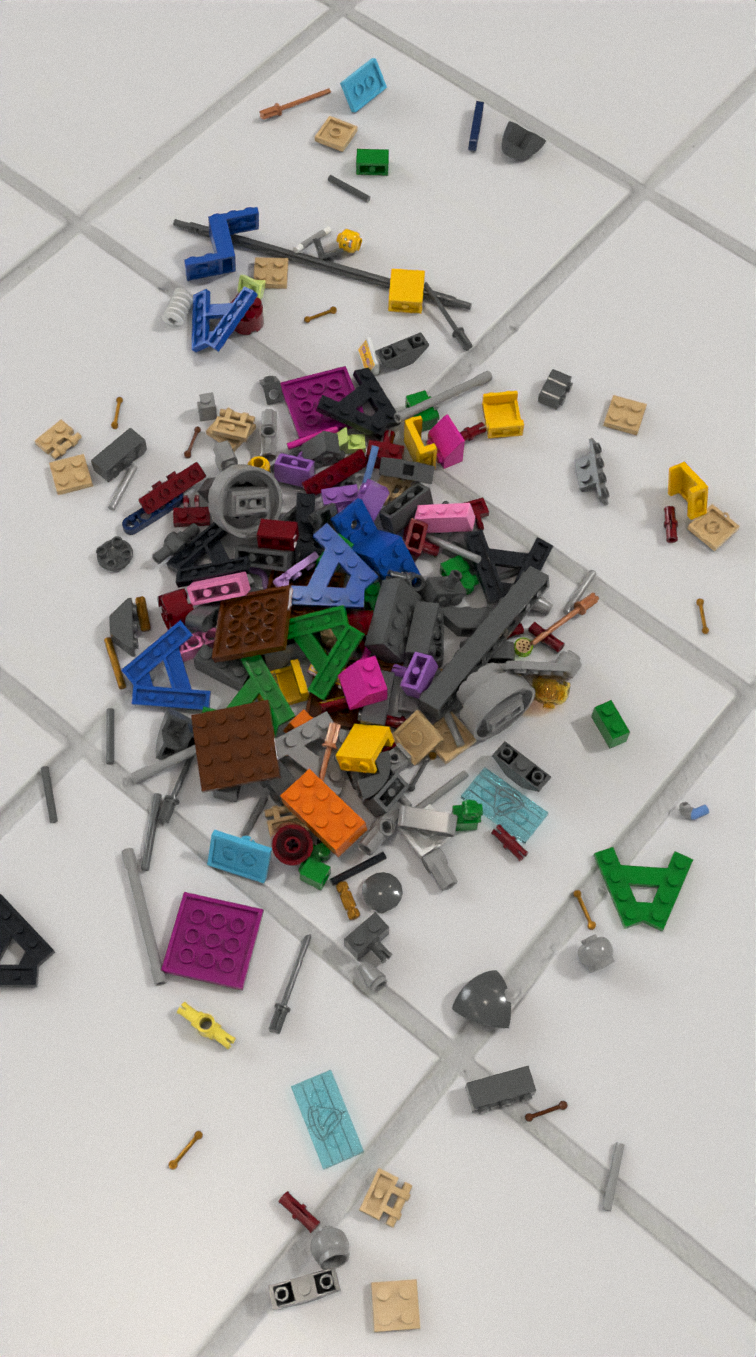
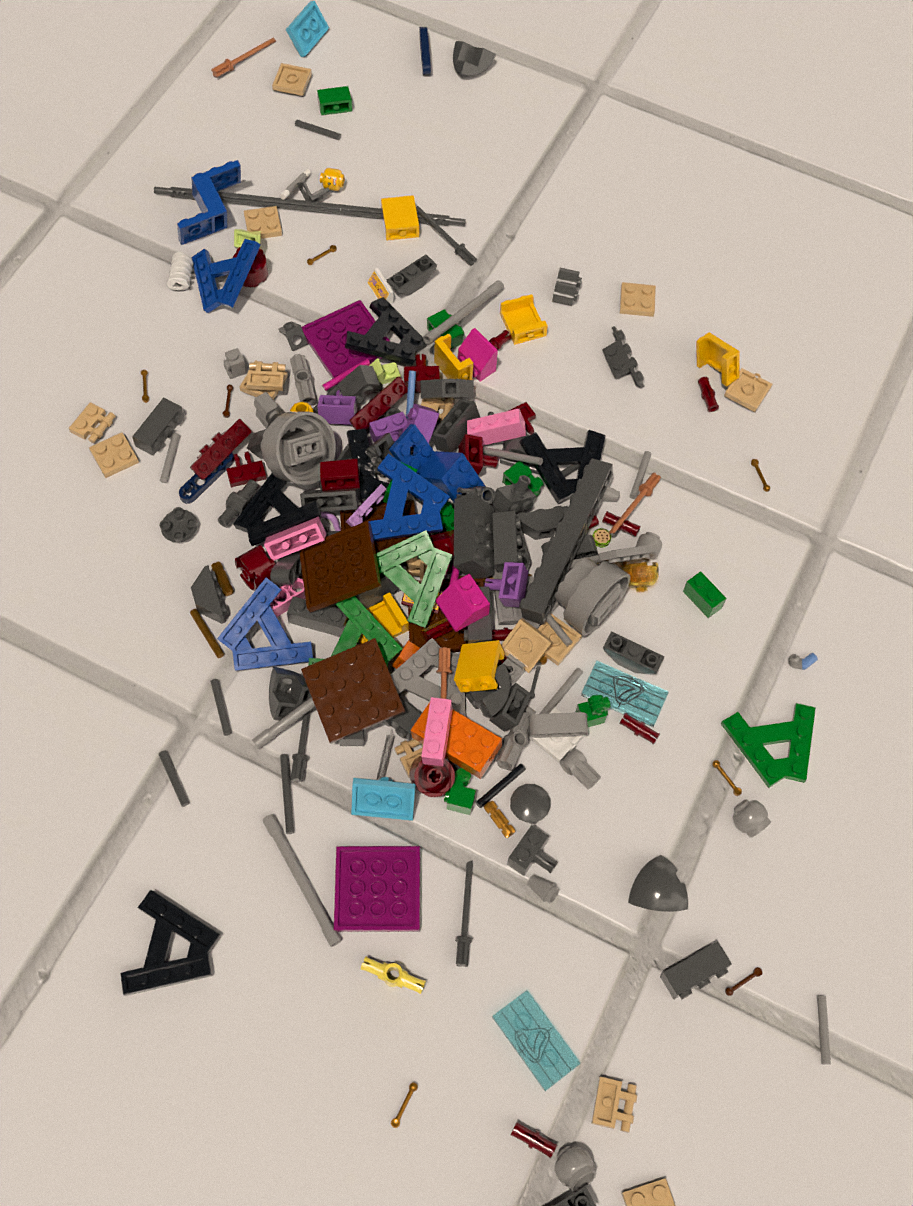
camera: 15 degrees left, 0 degrees up
(302, 802) = (437, 731): none -> bright pink brick

